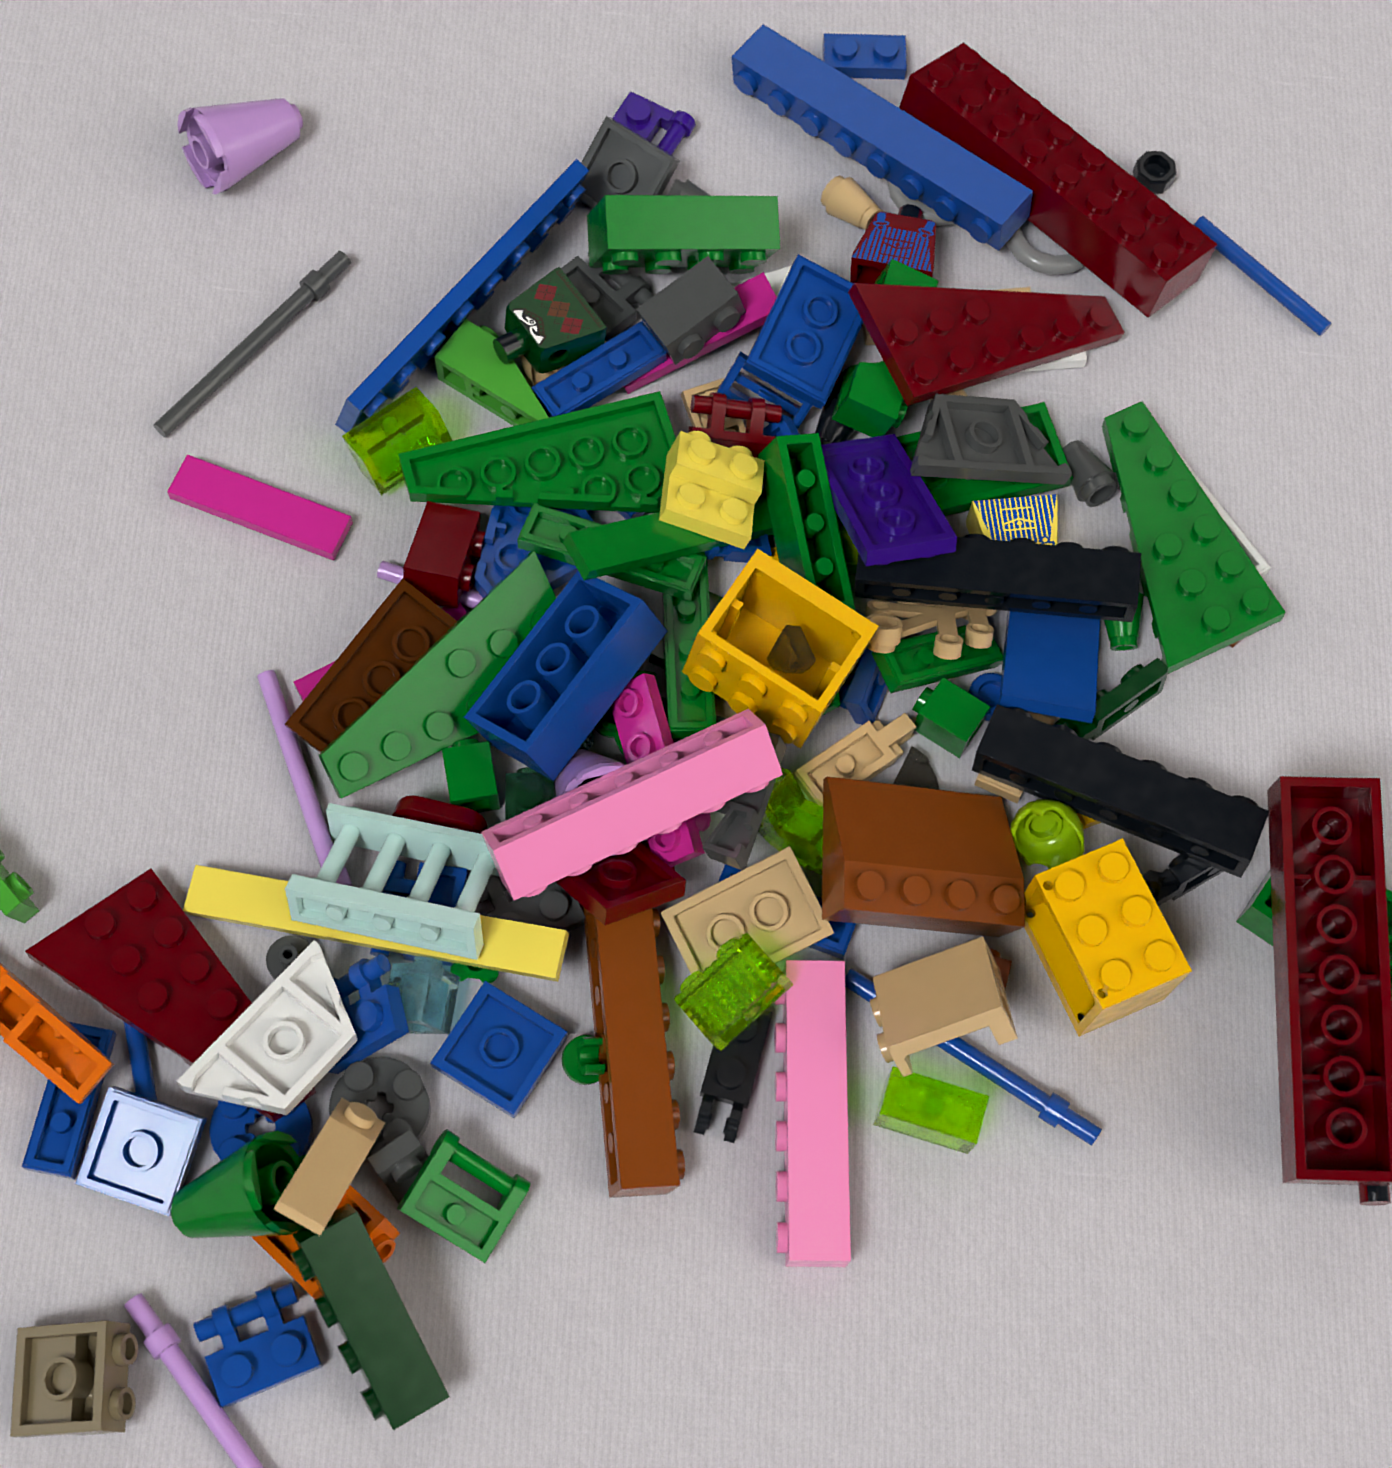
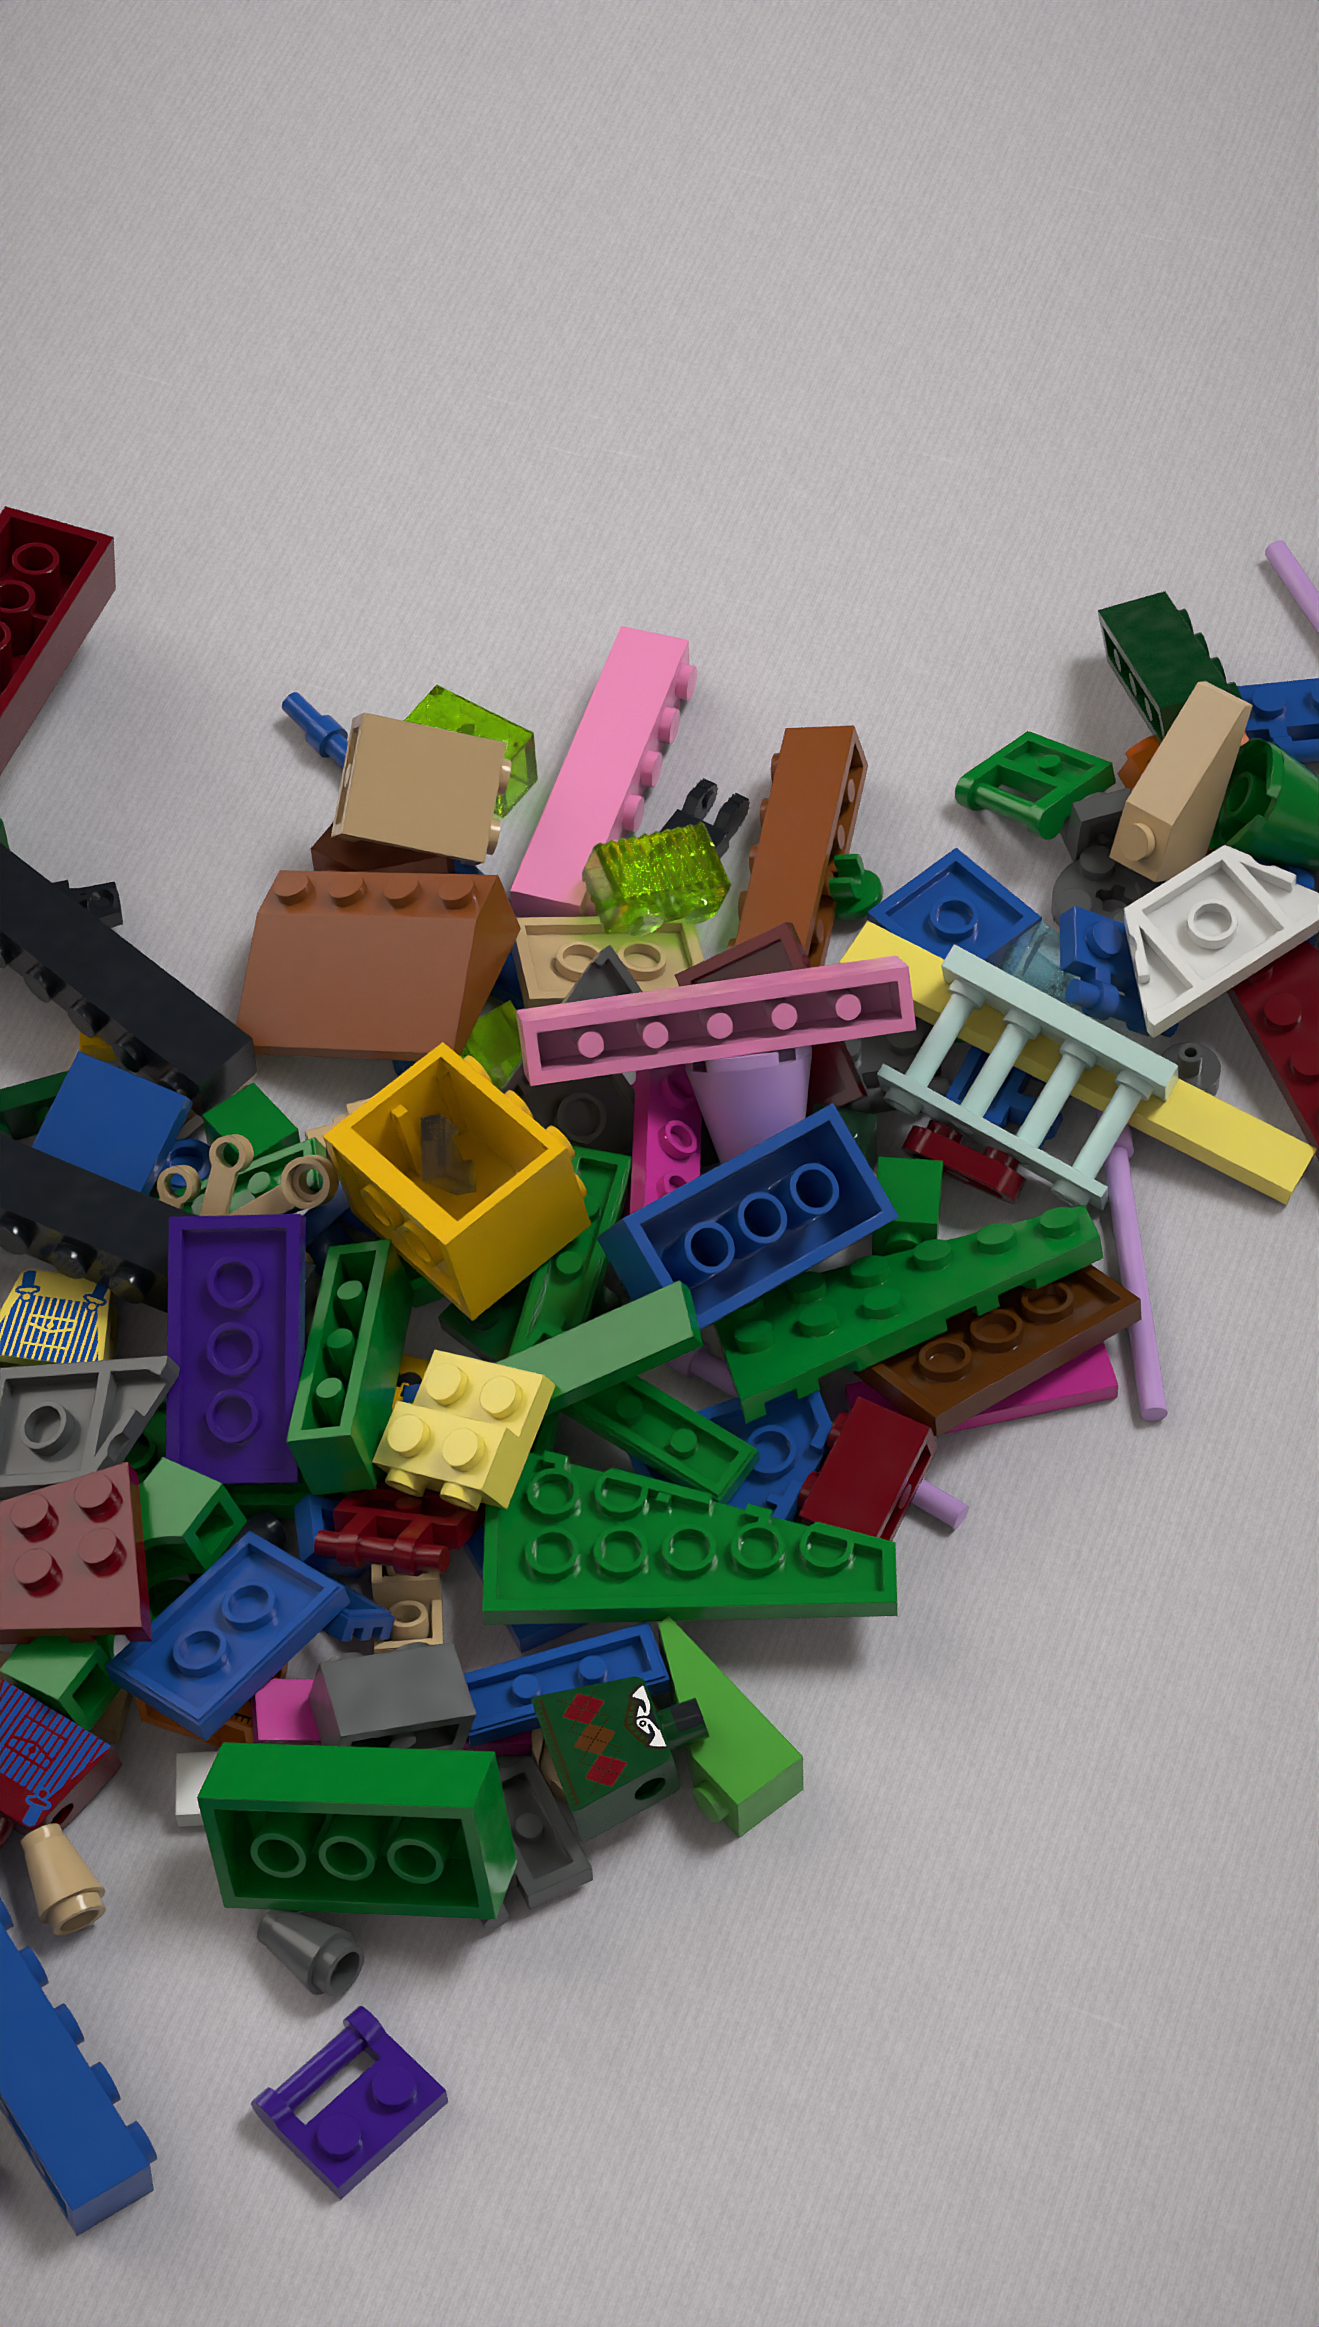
camera: 155 degrees left, 15 degrees down
(236, 138) = (1027, 2235): lavender cone -> none
(260, 507) = (1119, 1643): dark pink tile -> none
(312, 287) = (965, 1967): dark grey bar -> none
(398, 428) = (890, 1653): clear neon green brick -> none
(468, 294) = (726, 1852): blue plate -> none
(624, 164) = (410, 2007): dark grey plate -> none
(916, 771) = (326, 1094): clear smoke tile -> none
(1047, 833) = (193, 968): lime hair -> none
(1102, 937) = (194, 835): yellow container -> none

